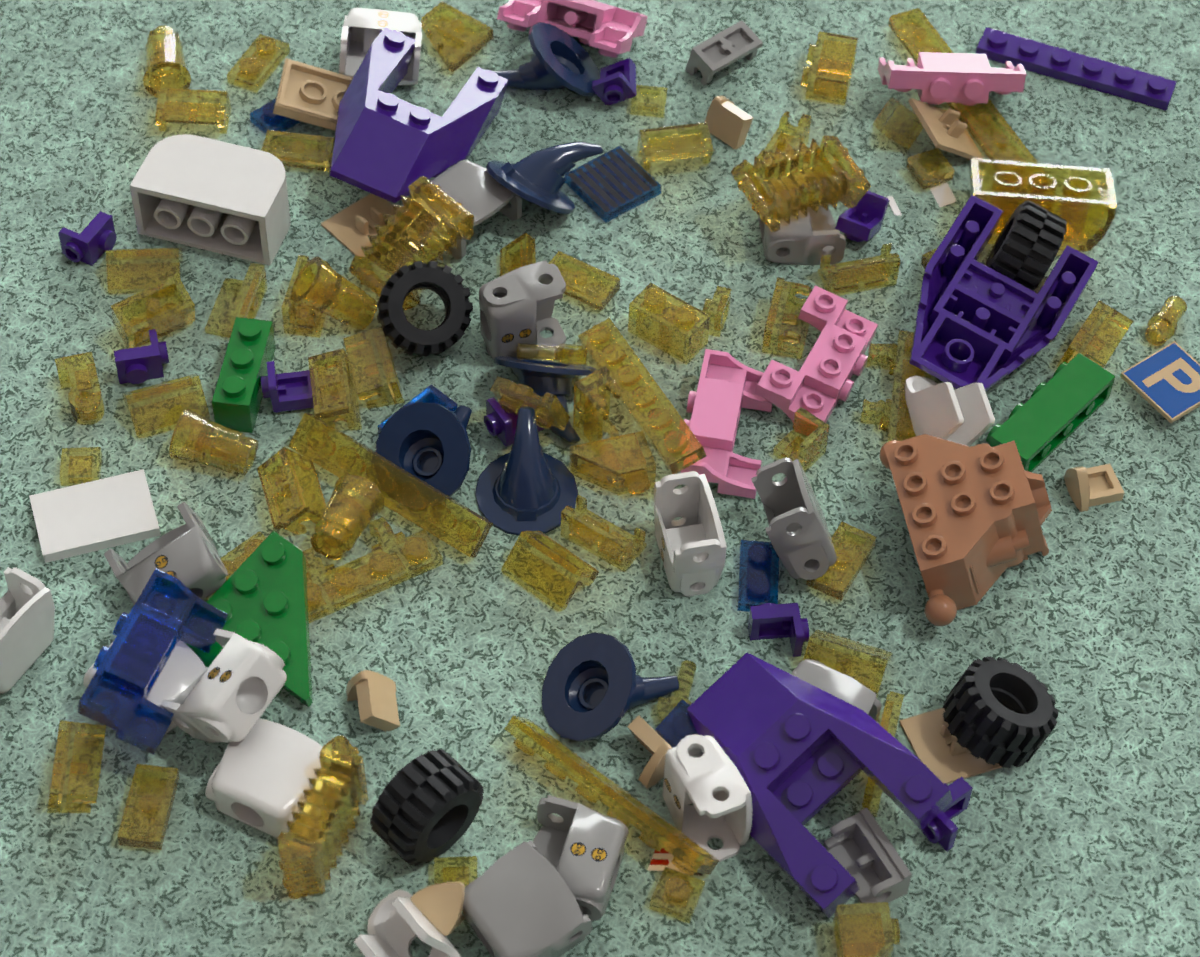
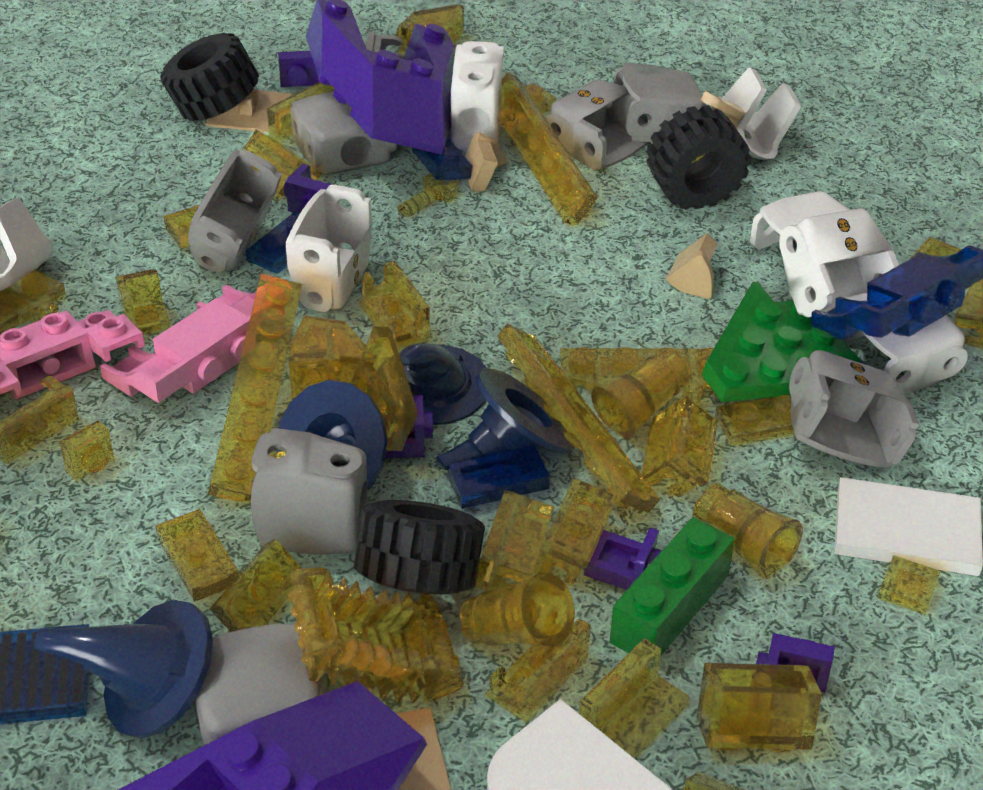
camera: 150 degrees left, 10 degrees down
(85, 395) = (878, 680): clear yellow leg -> none
(161, 405) = (762, 611): clear yellow panel -> none
(323, 819) = (788, 172): clear yellow piece -> none
(547, 569) = (461, 305): clear yellow panel -> none
(594, 686) = (498, 195): dark blue piece -> none
(668, 323) = (154, 454): clear yellow brick -> none
(966, 515) = (79, 156): nougat piece -> none

